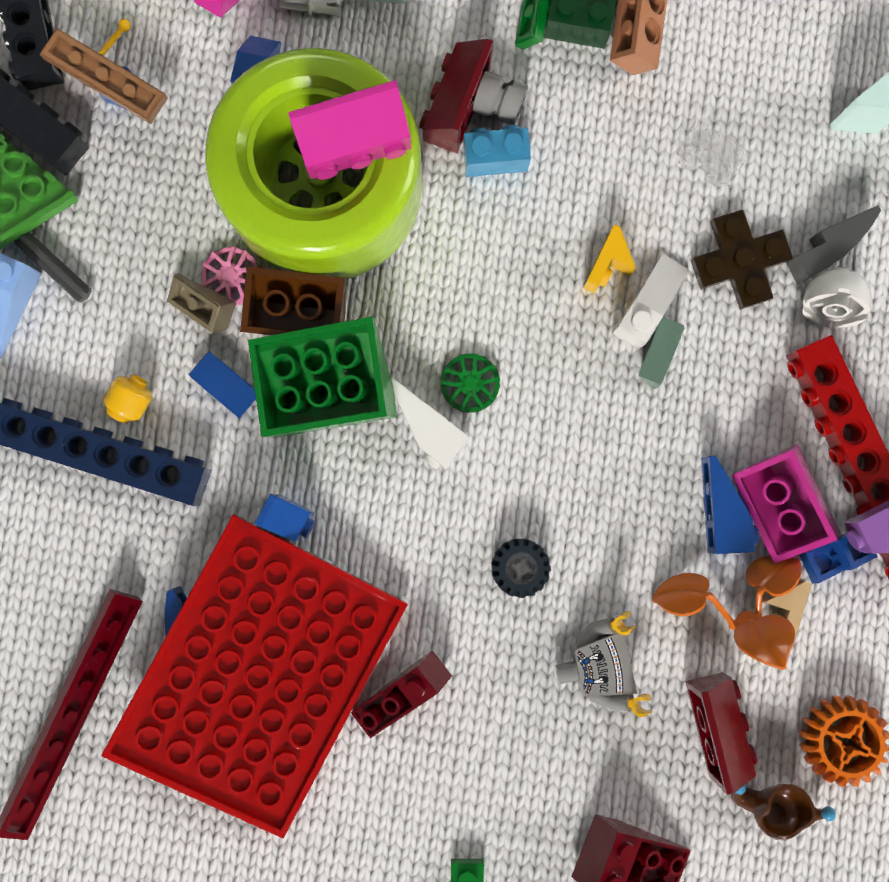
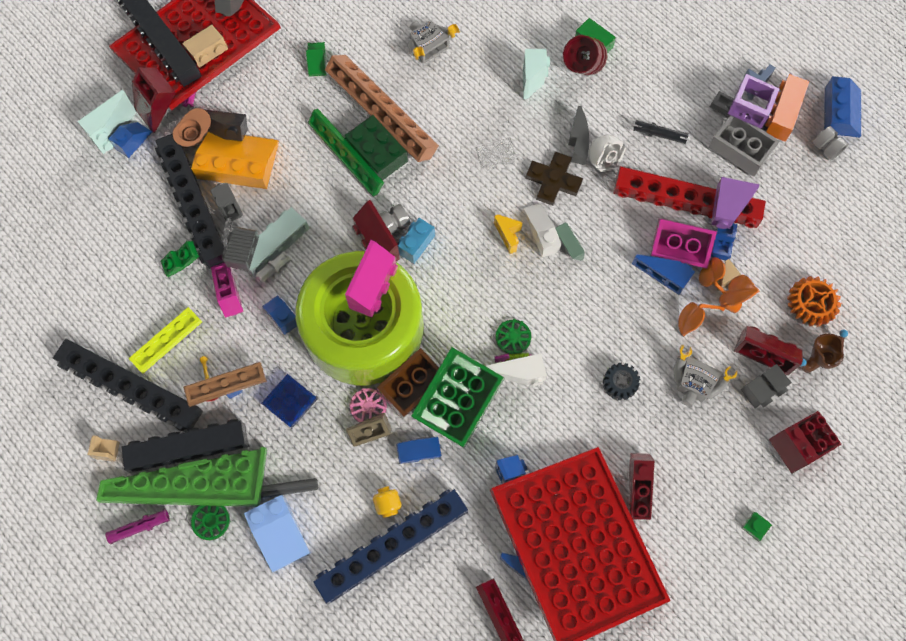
camera: 50 degrees left, 15 degrees down
(155, 174) = (289, 401): none -> clear blue plate
(439, 404) = (506, 357): none -> piece
(666, 762) = (766, 386): none -> dark grey piece

